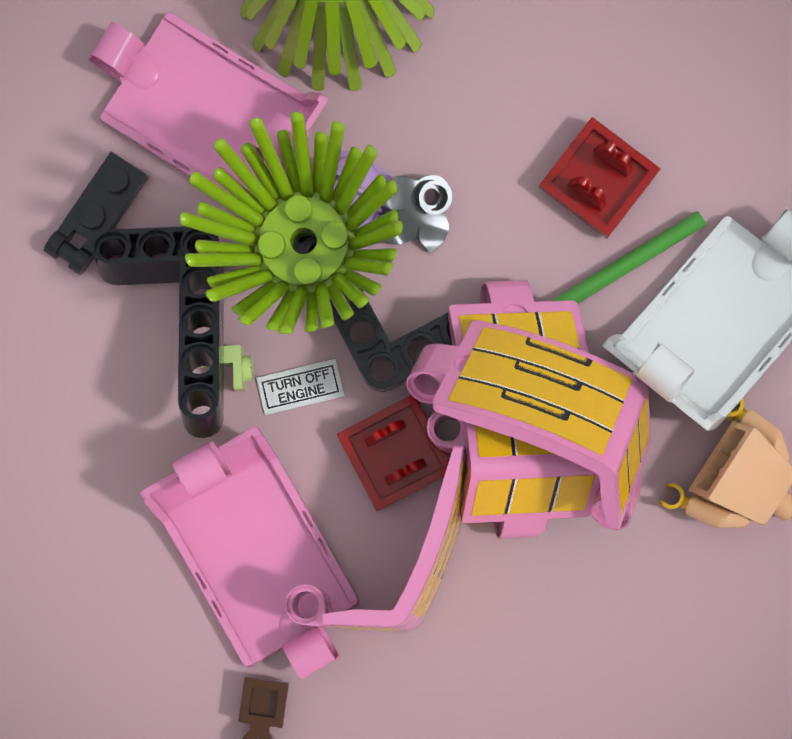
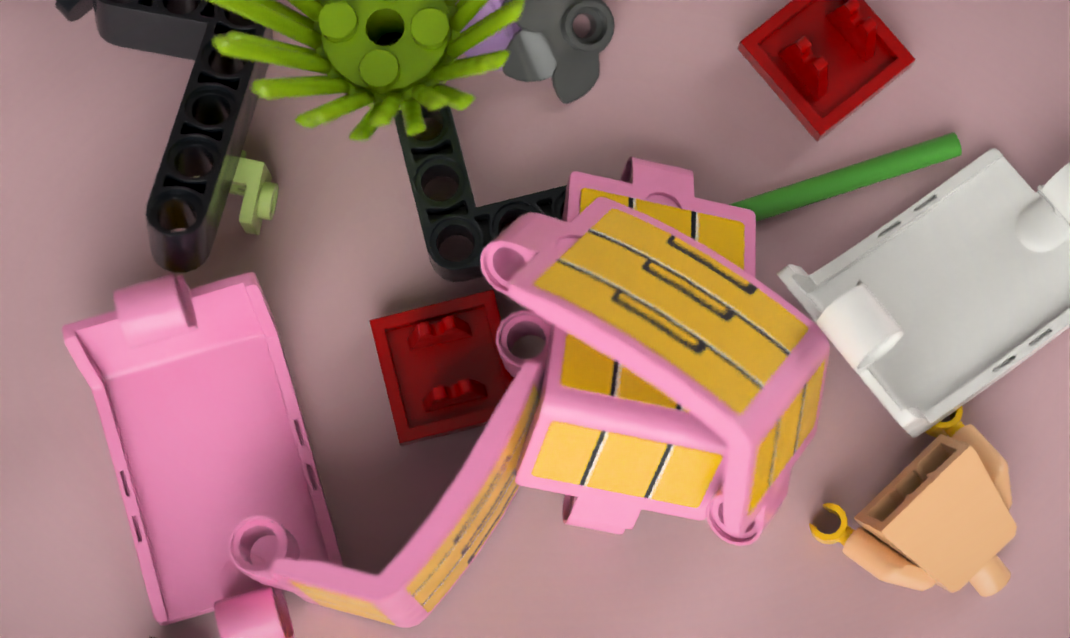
camera: 10 degrees right, 5 degrees down
(300, 386) = (337, 247): white sticker -> none

